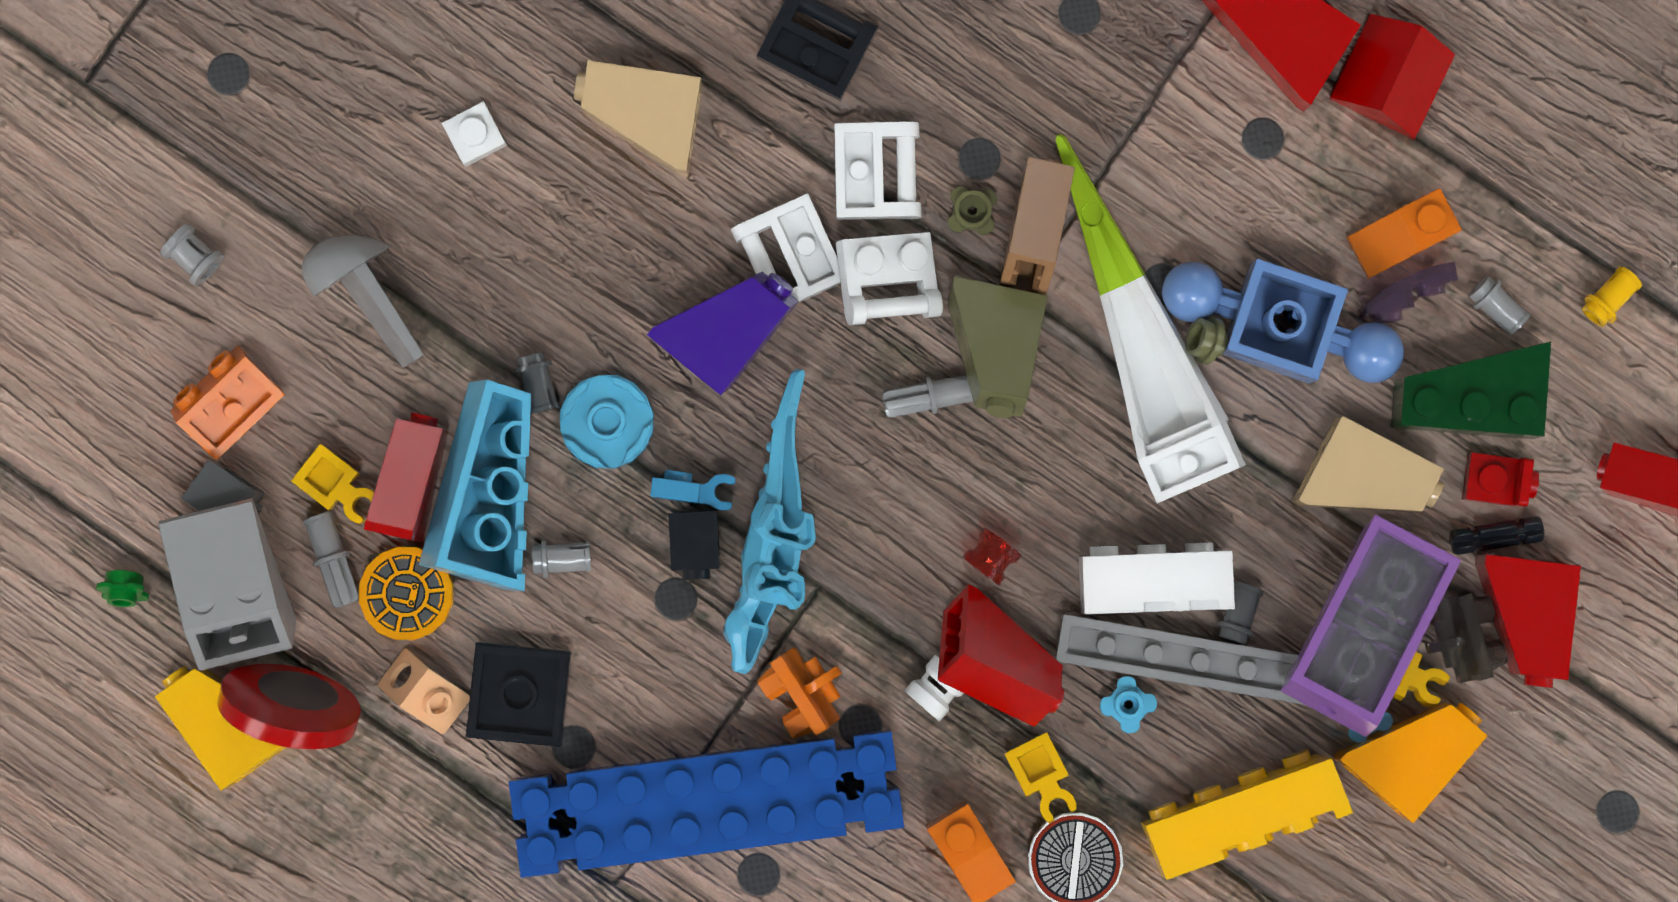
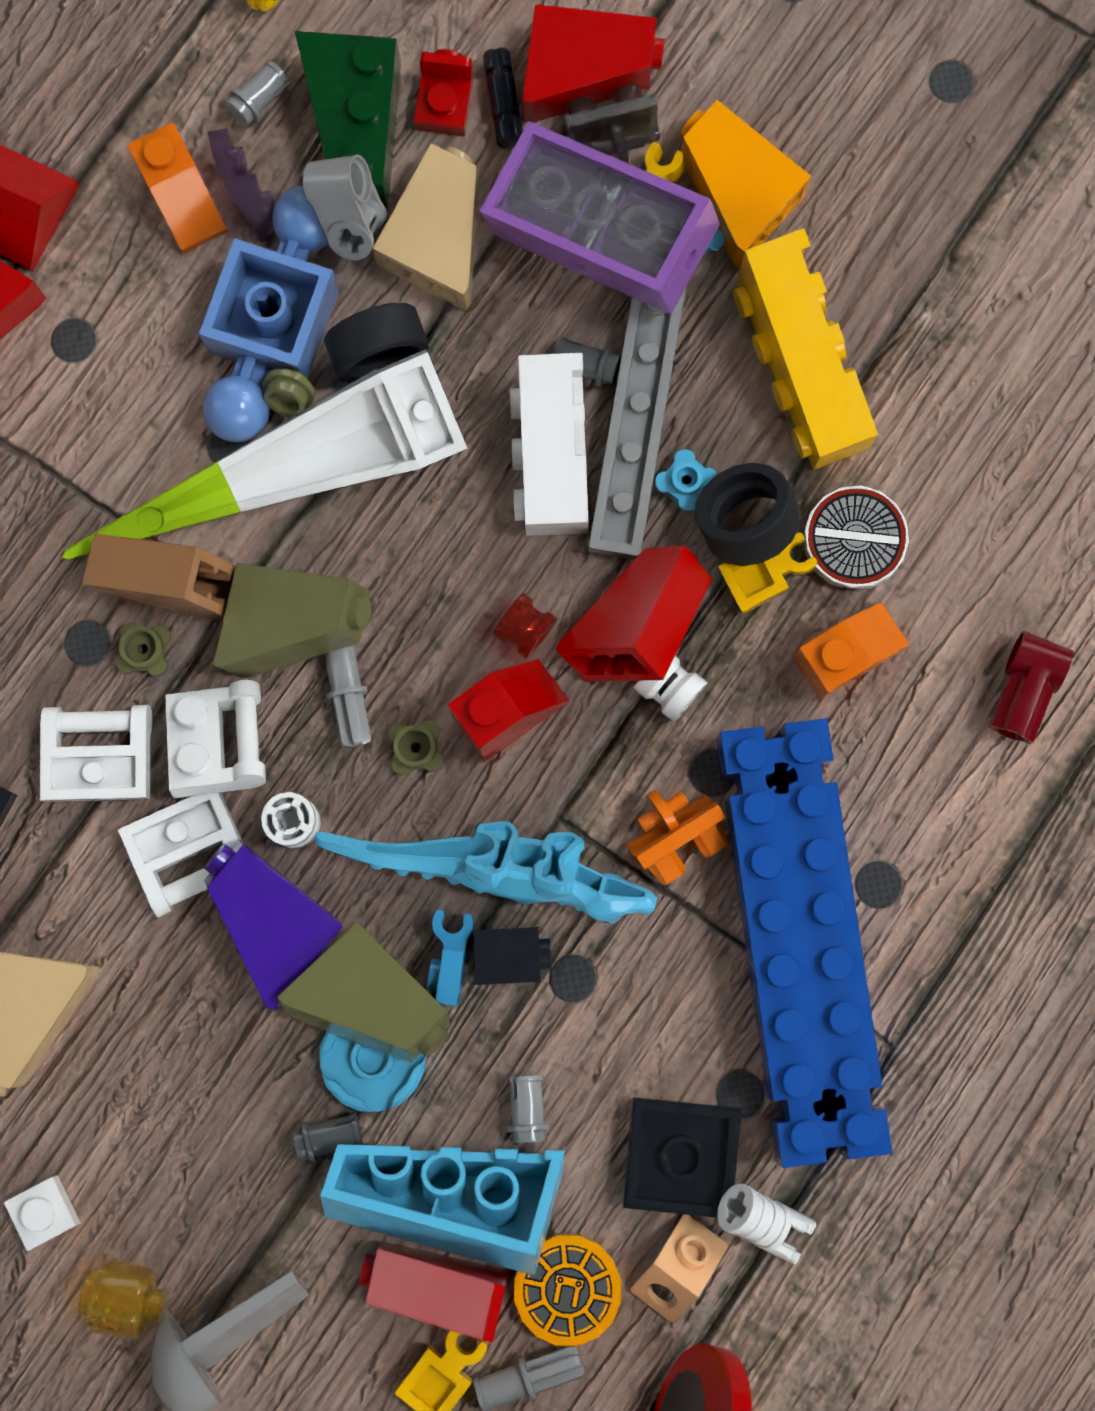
camera: 80 degrees left, 5 degrees down
(400, 206) = (121, 1299): none -> clear yellow head
(463, 763) = (762, 1221): none -> white hinge
(656, 418) = (367, 999): none -> olive slope
(815, 354) = (298, 824): none -> white wheel
(891, 447) = (402, 740): none -> olive plate
(917, 542) = (506, 706): none -> red slope
(1119, 745) = (735, 487): none -> black tyre
(1253, 419) = (374, 339): none -> black tyre
(1380, 390) = (345, 203): none -> light grey piece

